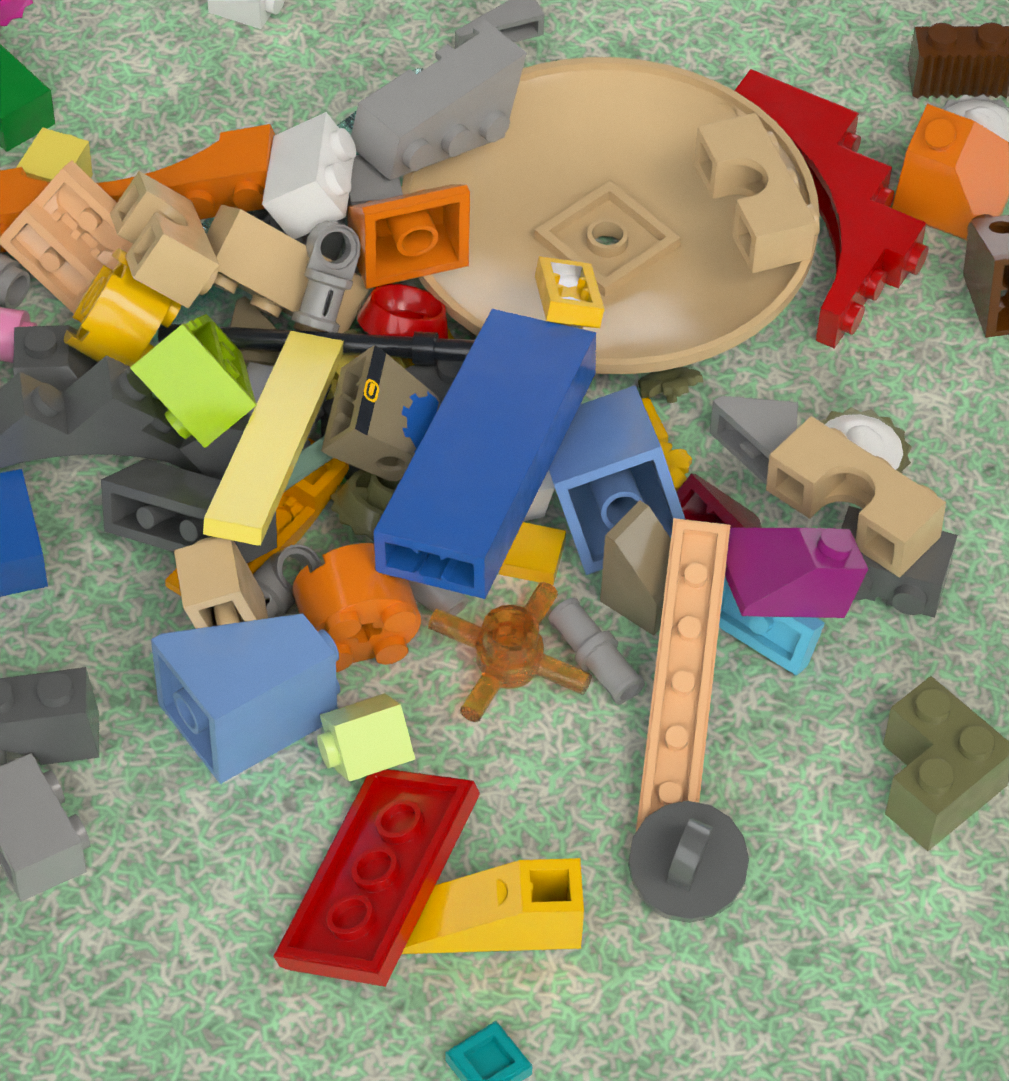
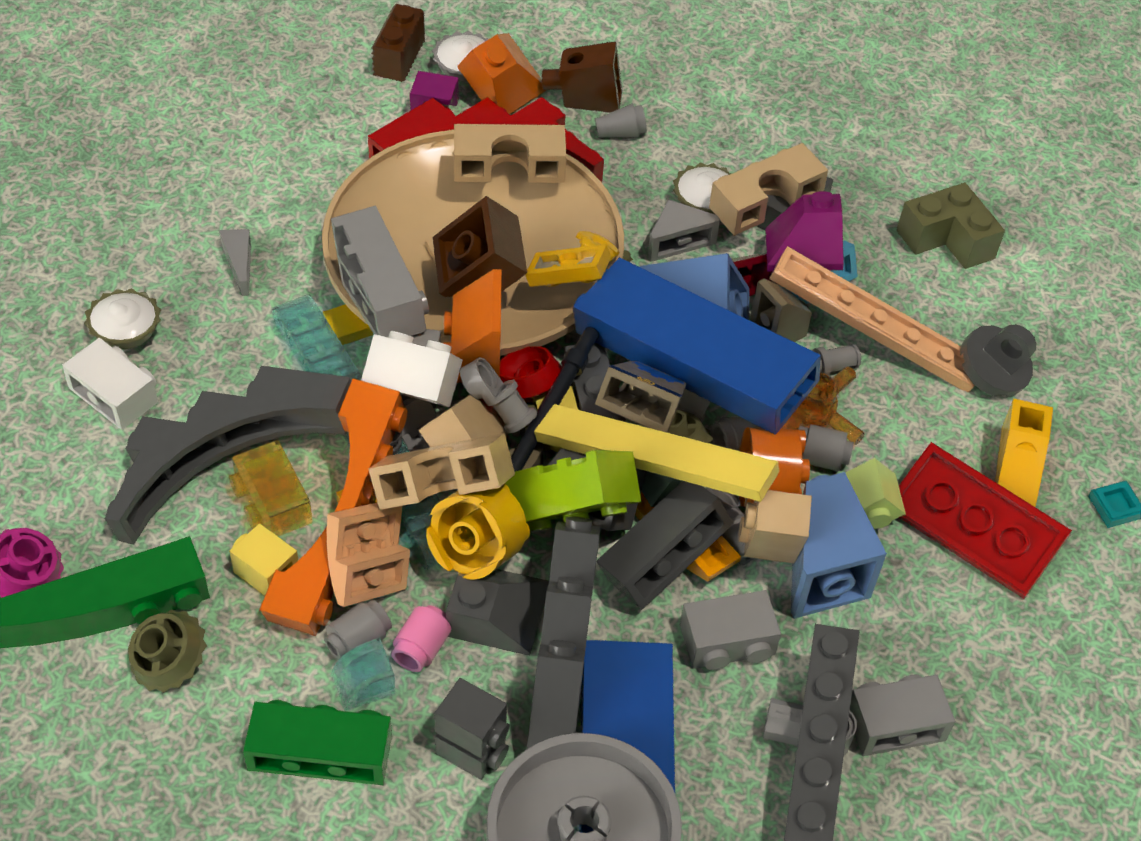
camera: 75 degrees left, 0 degrees up
(98, 623) = (730, 630): none -> light grey brick
(154, 139) = (270, 489): none -> clear yellow brick
(177, 54) = (220, 424): none -> dark grey arch
(437, 673) = (826, 447): none -> light grey brick
(561, 208) = (477, 243): none -> reddish brown slope
(634, 322) = (589, 239): none -> yellow plant
(884, 114) = (437, 86): none -> magenta panel
(953, 338) = (622, 123): none -> light grey cone

